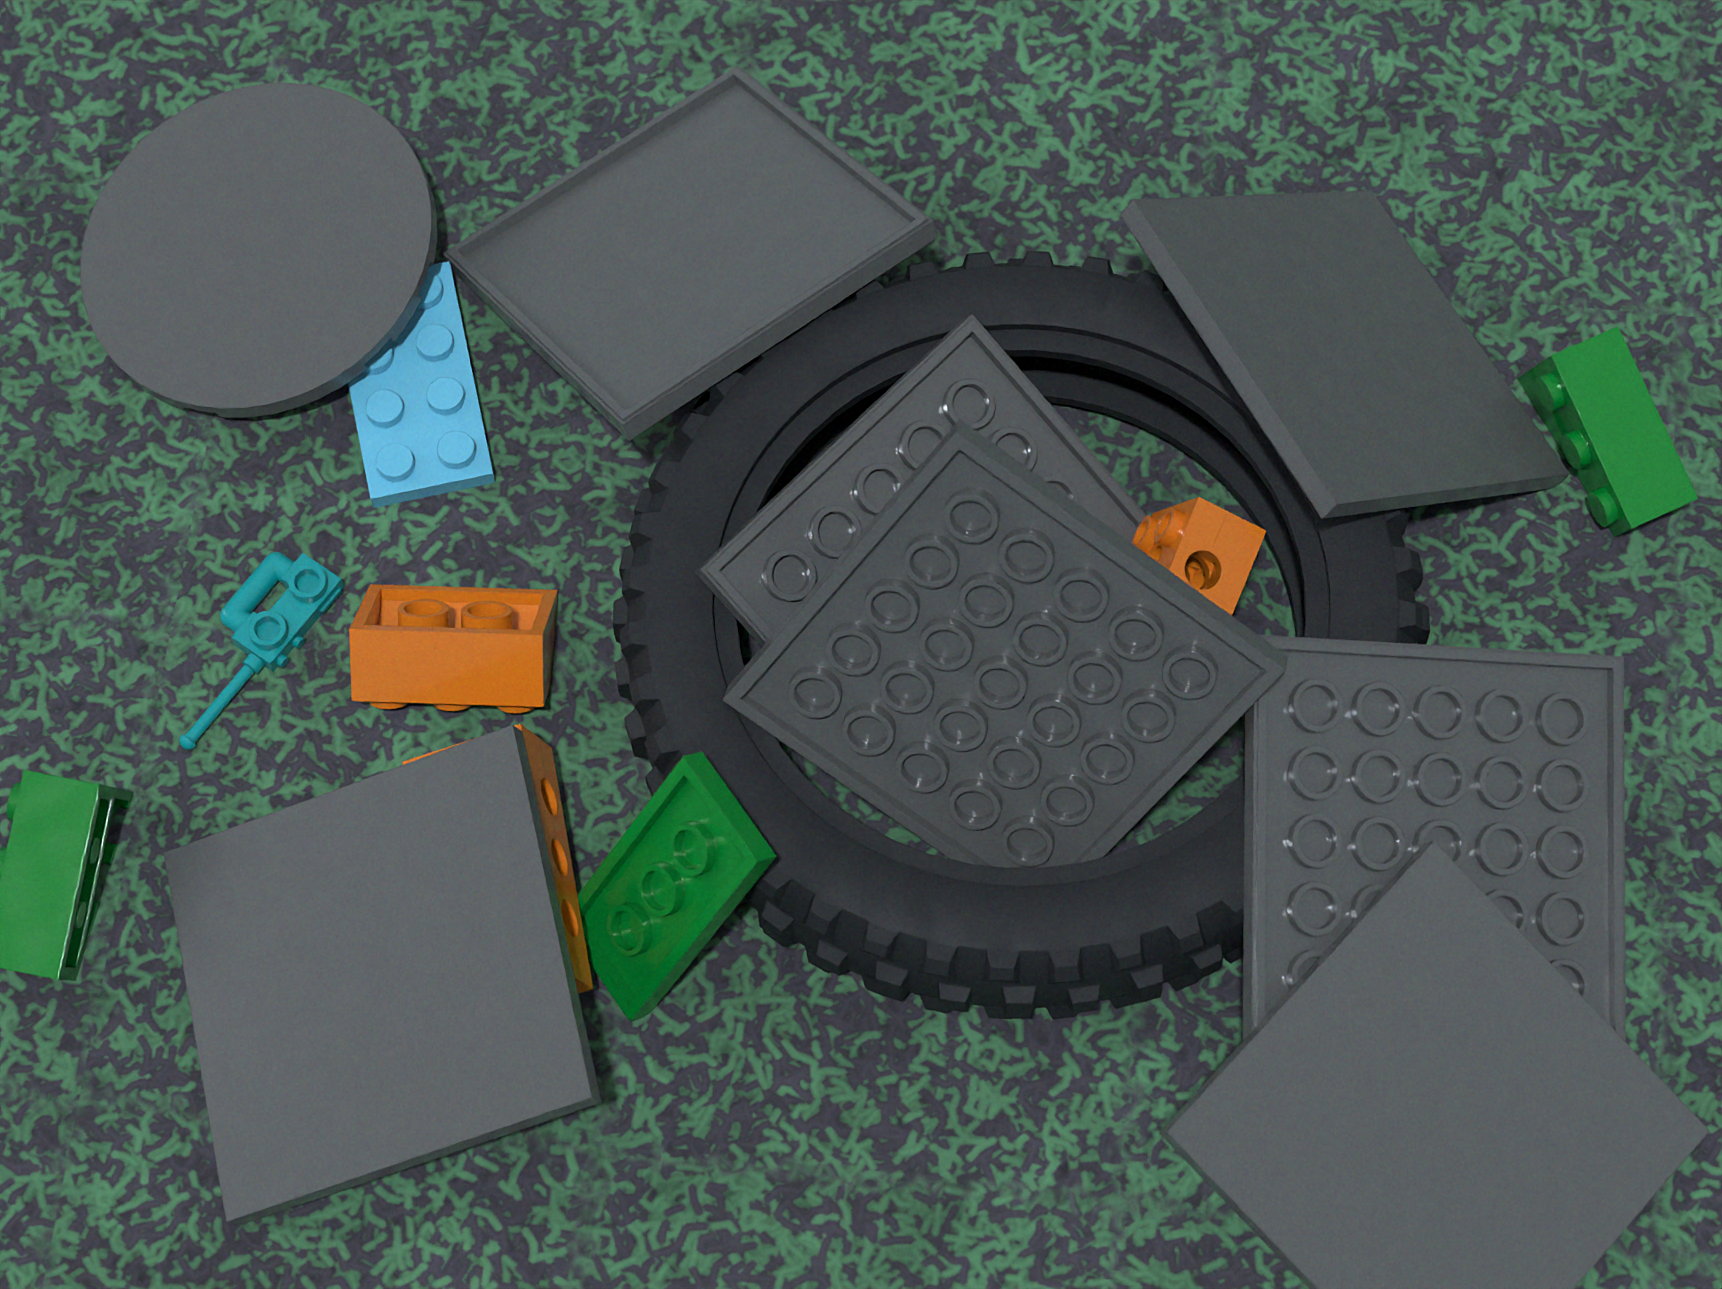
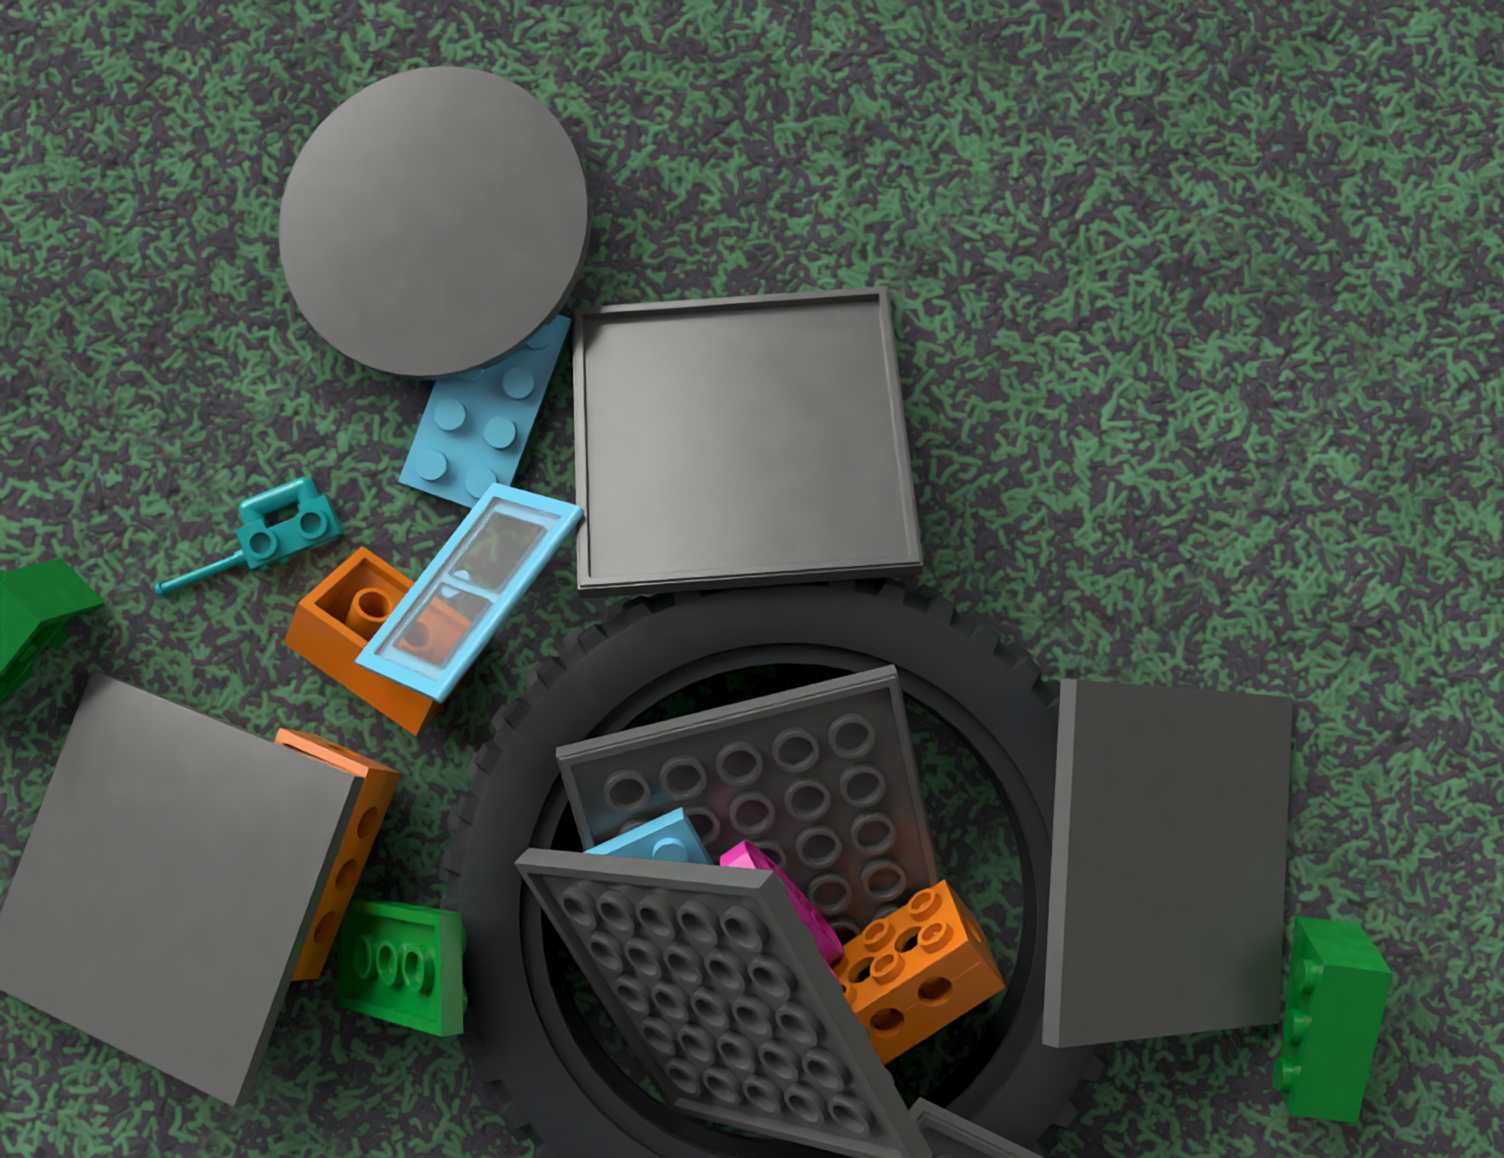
camera: 30 degrees right, 20 degrees up
(513, 506) = (468, 590): none -> clear door

